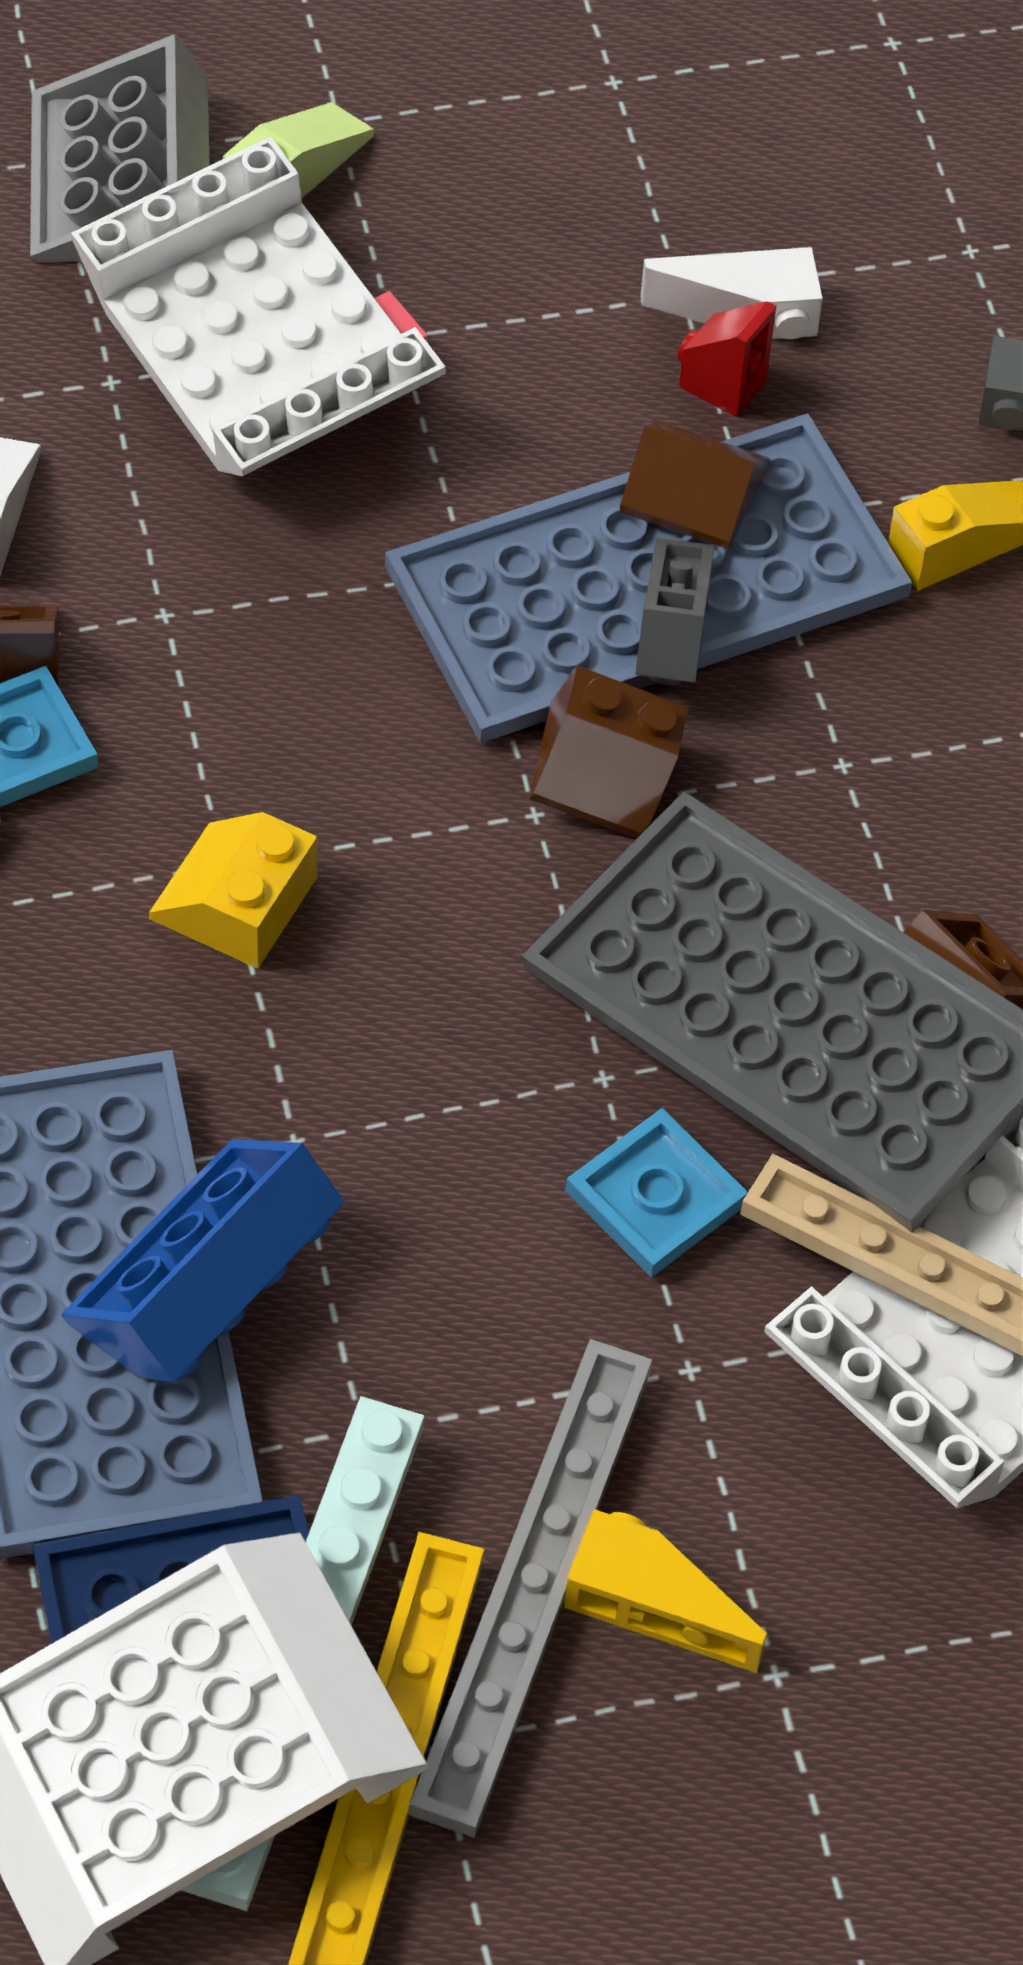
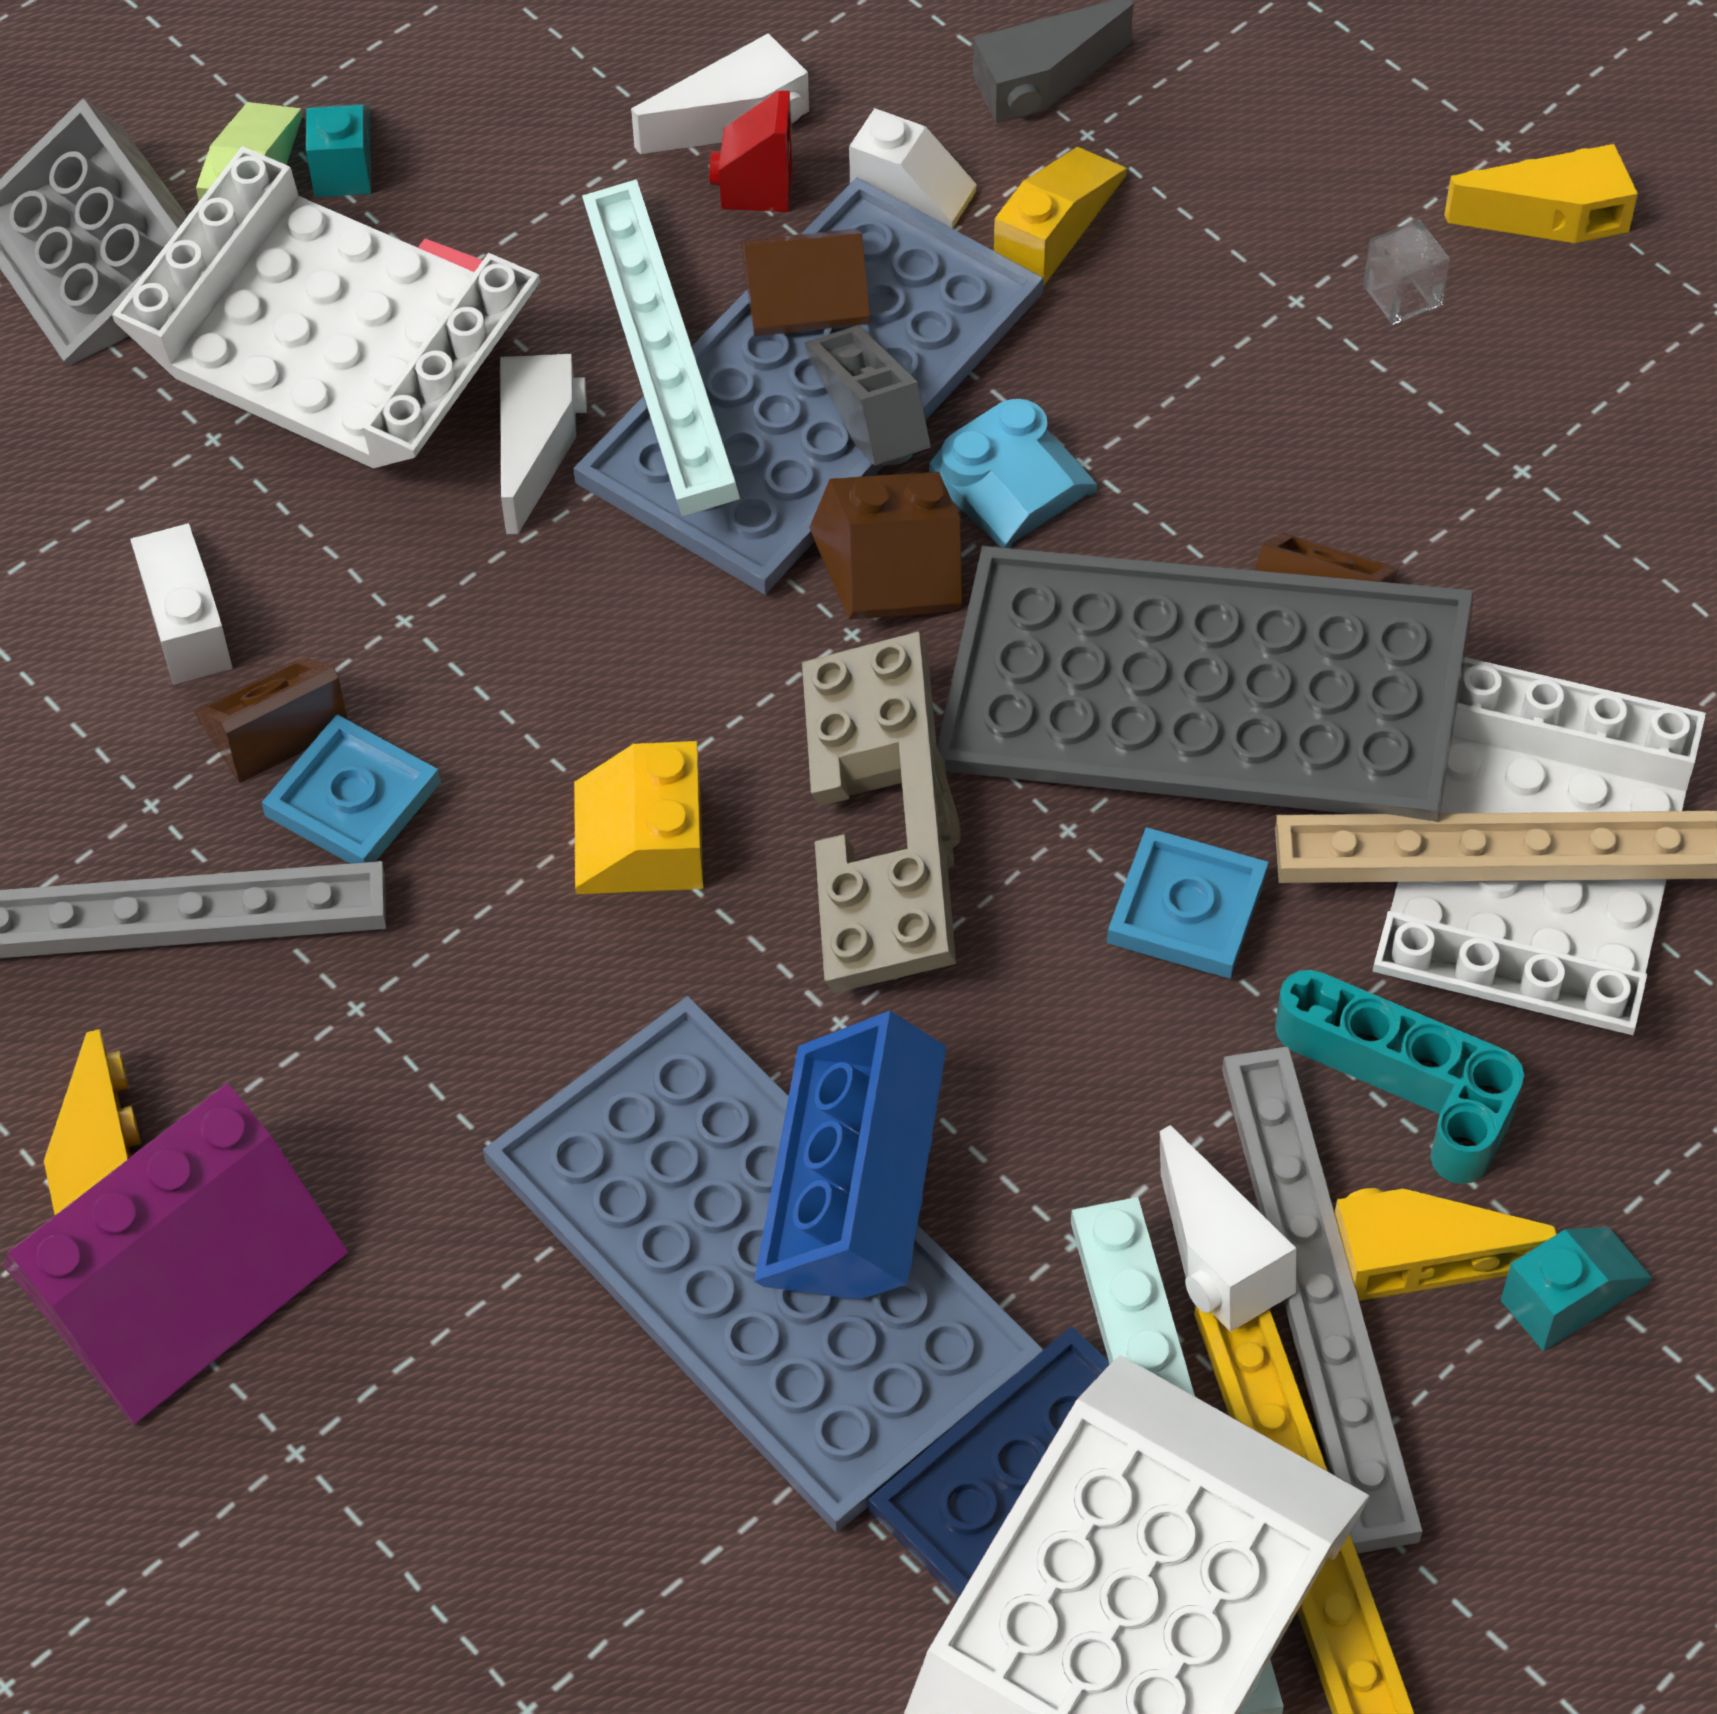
camera: 25 degrees left, 0 degrees up
(375, 504) = (536, 428): none -> white slope
(379, 177) = (339, 149): none -> teal slope
(467, 1491) = (1227, 1248): none -> white slope
(471, 906) = (867, 732): none -> plate
(523, 483) = (660, 349): none -> light aqua plate
(739, 1417) = (1306, 1024): none -> teal beam
(763, 1691) = (1570, 1282): none -> teal slope
(767, 740) = (1010, 471): none -> medium azure slope
(861, 429) = (910, 166): none -> white slope

